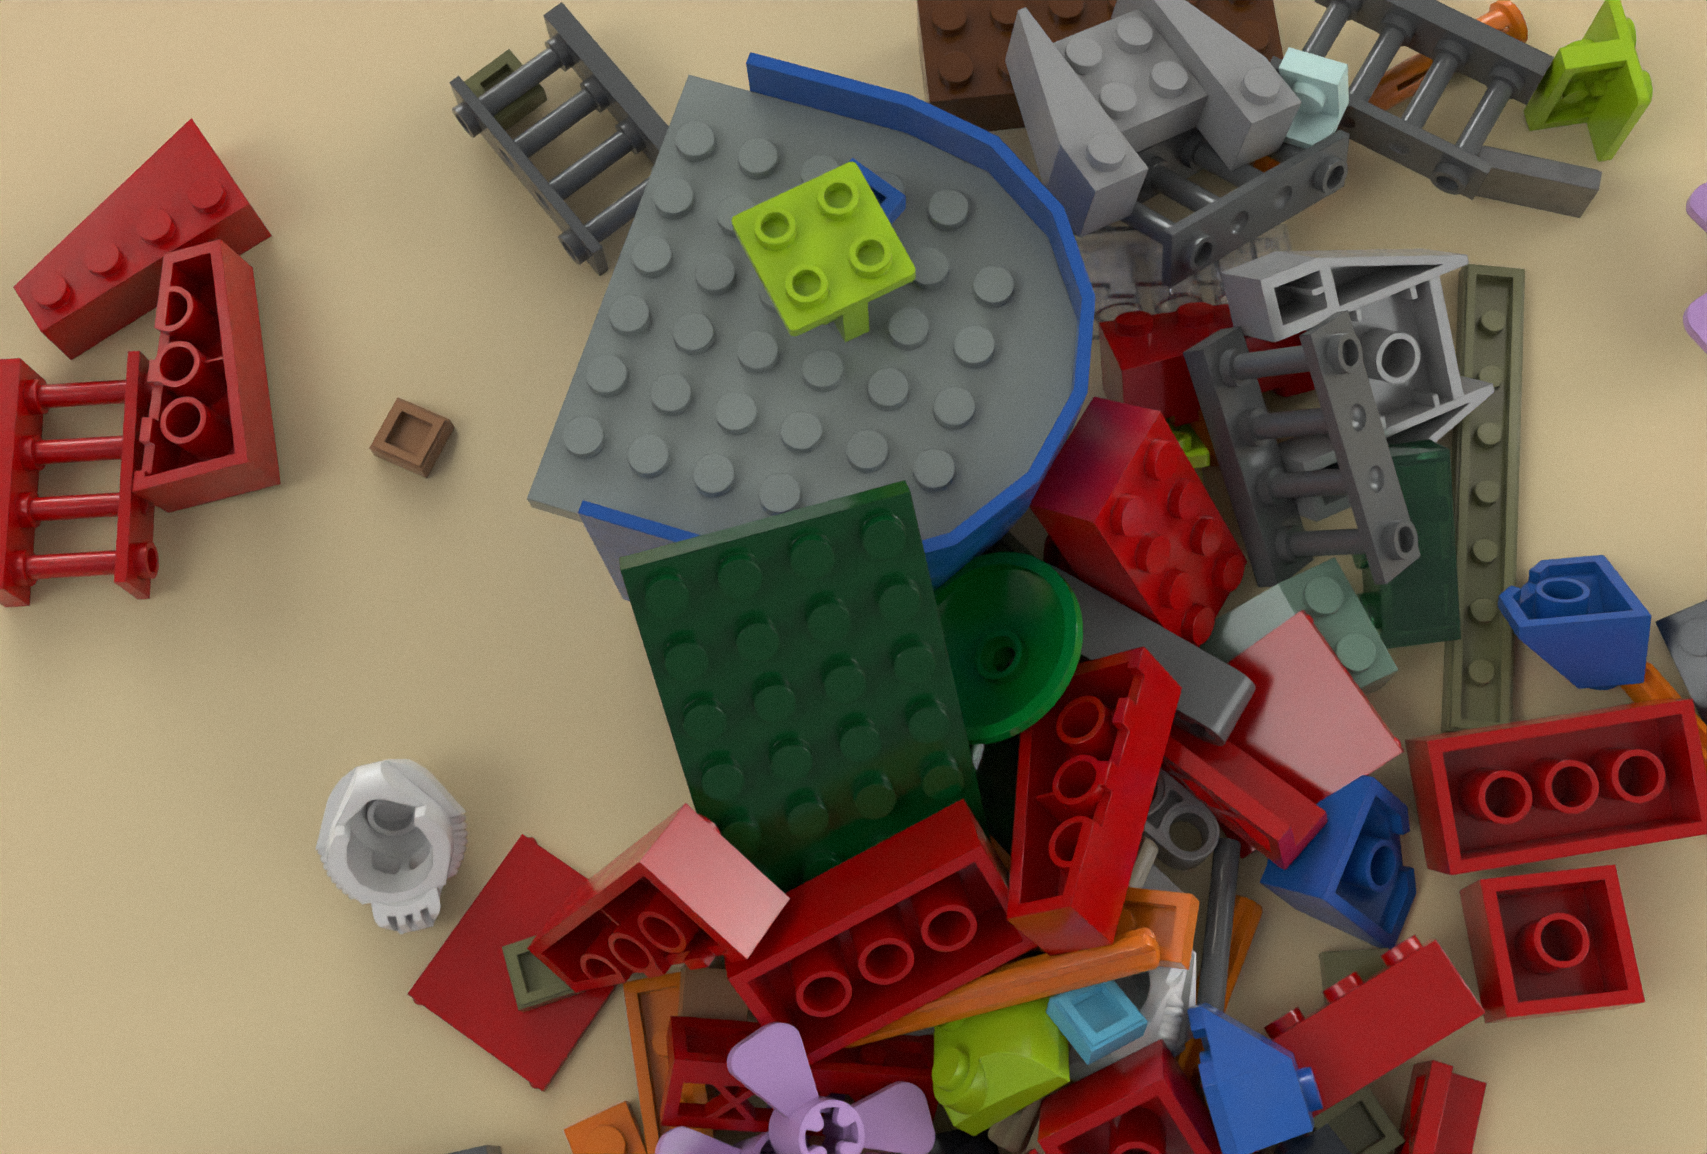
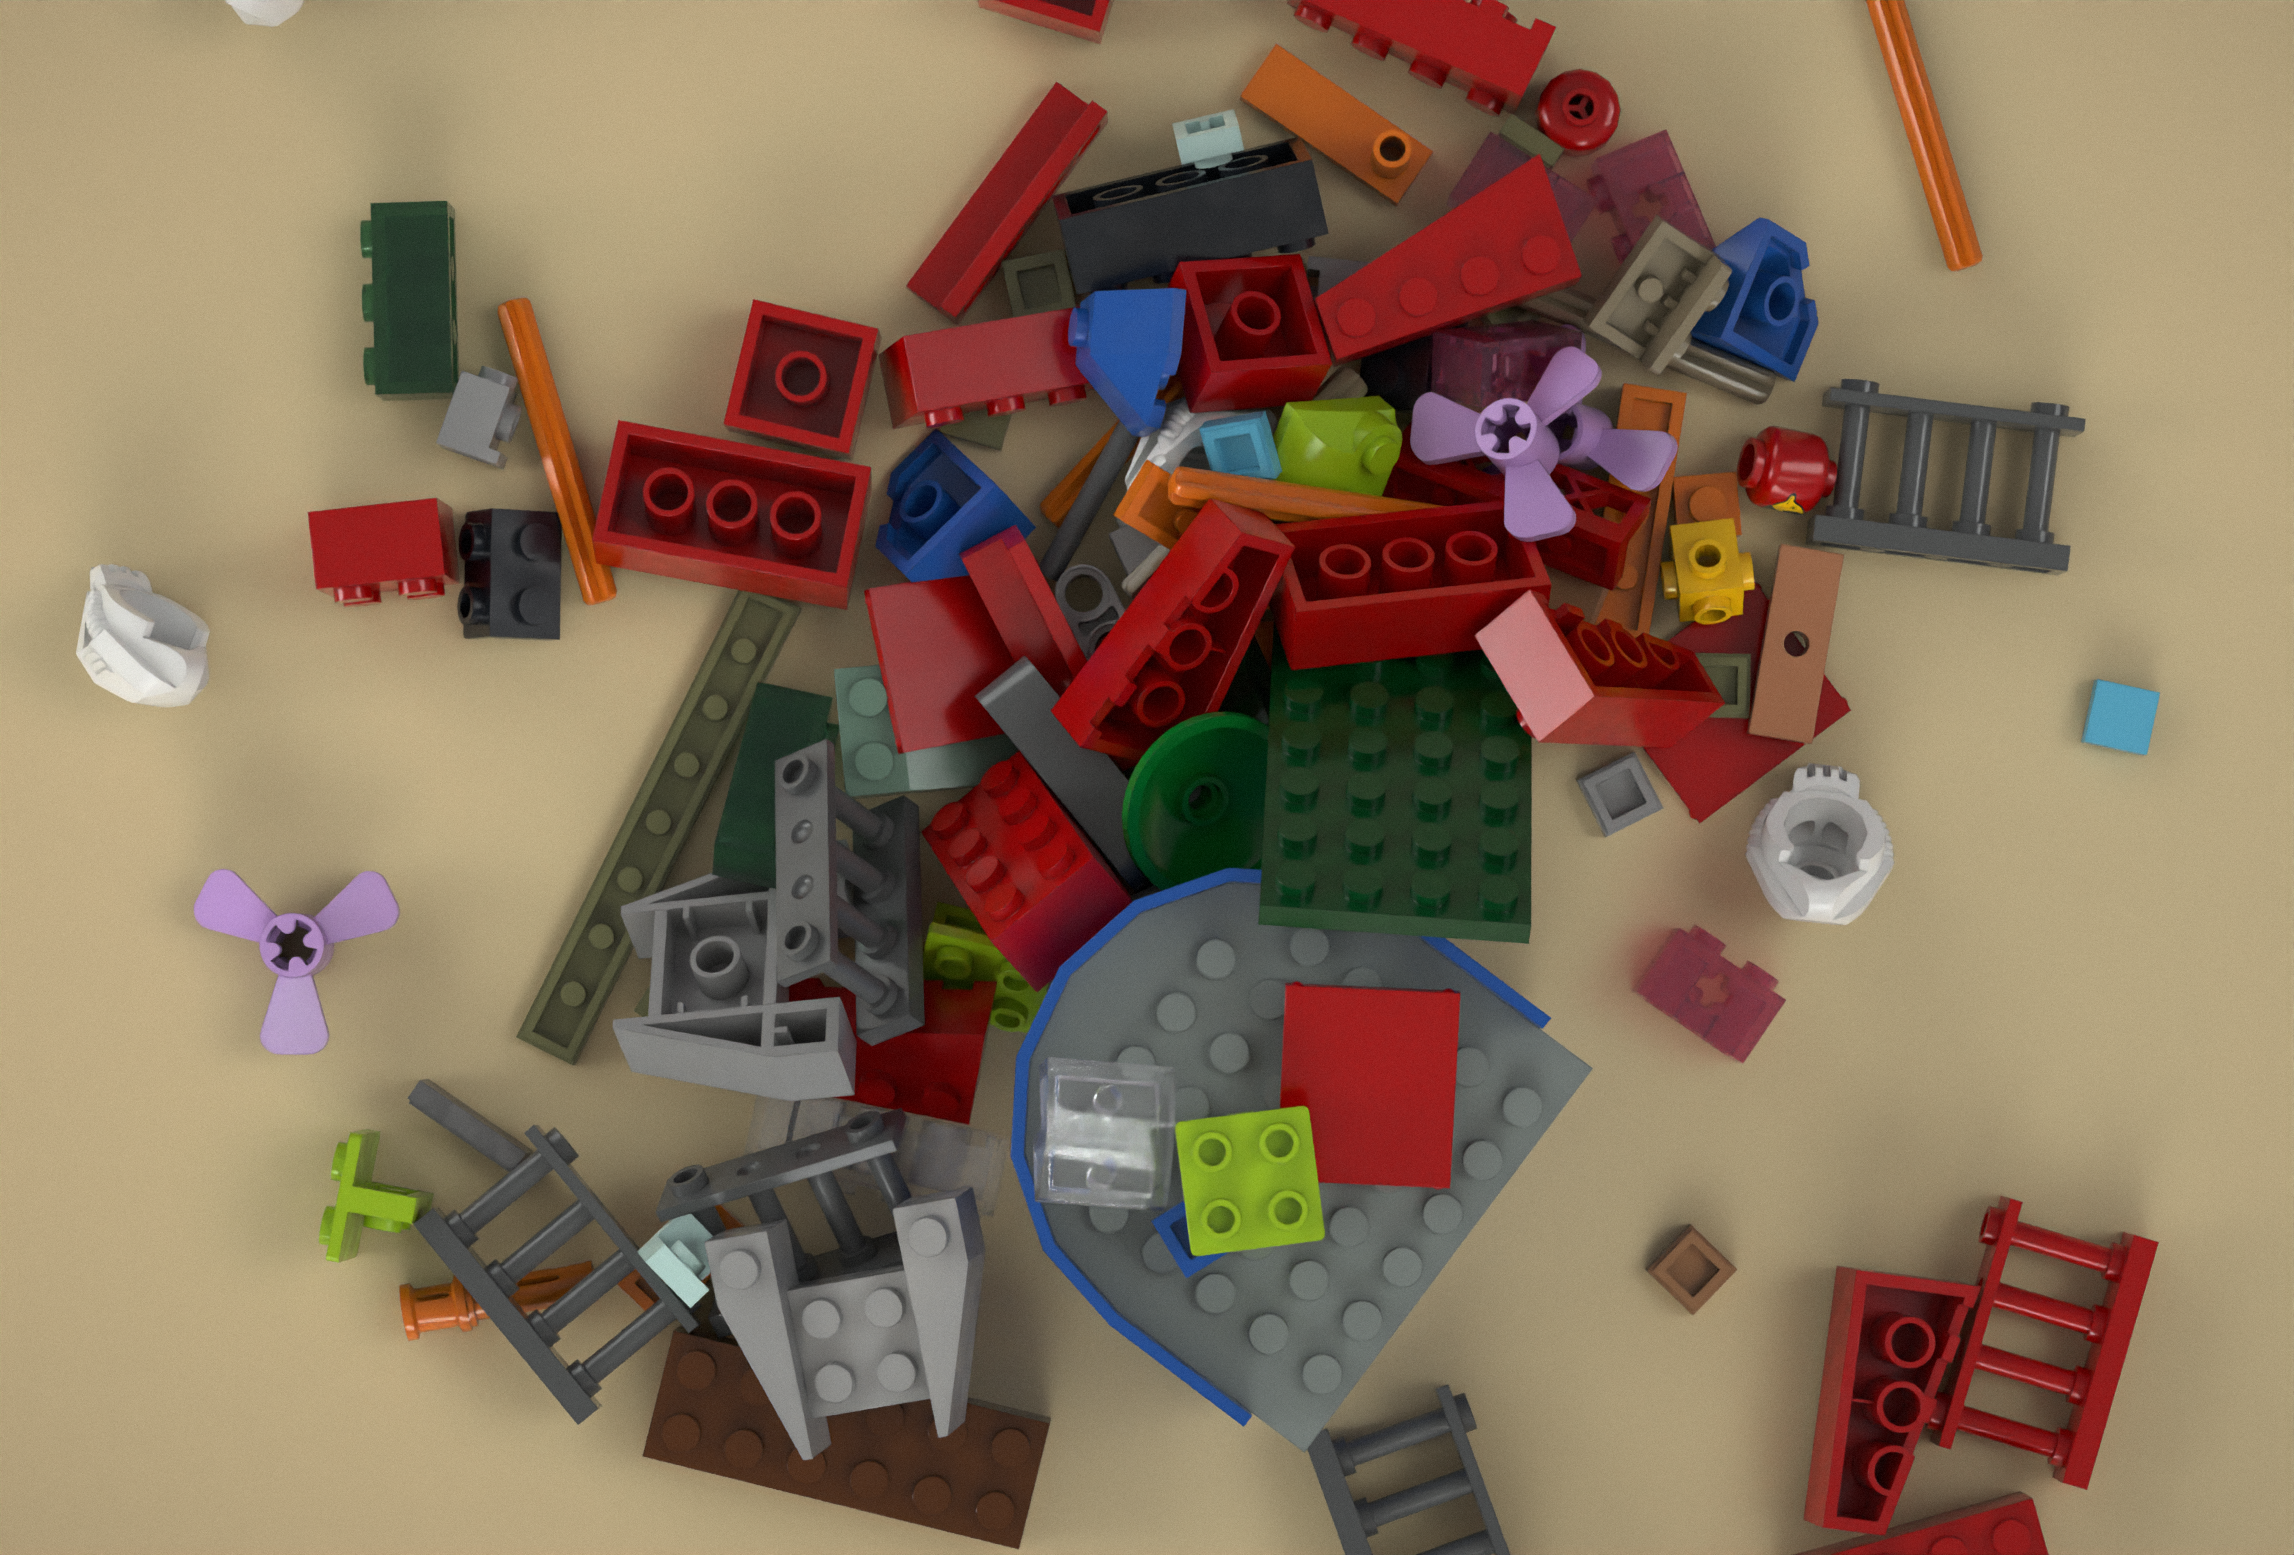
camera: 170 degrees left, 15 degrees up
(138, 1080) = (2120, 717): none -> medium azure tile
(437, 651) = (1727, 1026): none -> clear pink brick
(481, 1079) = (1804, 604): none -> nougat tile
(584, 1075) = (1706, 571): none -> yellow brick
(604, 829) = (1619, 794): none -> light grey tile
(738, 399) = (1375, 1080): none -> red piece
(981, 254) = (1104, 1134): none -> clear slope
(1581, 621) = (640, 665): blue slope -> none

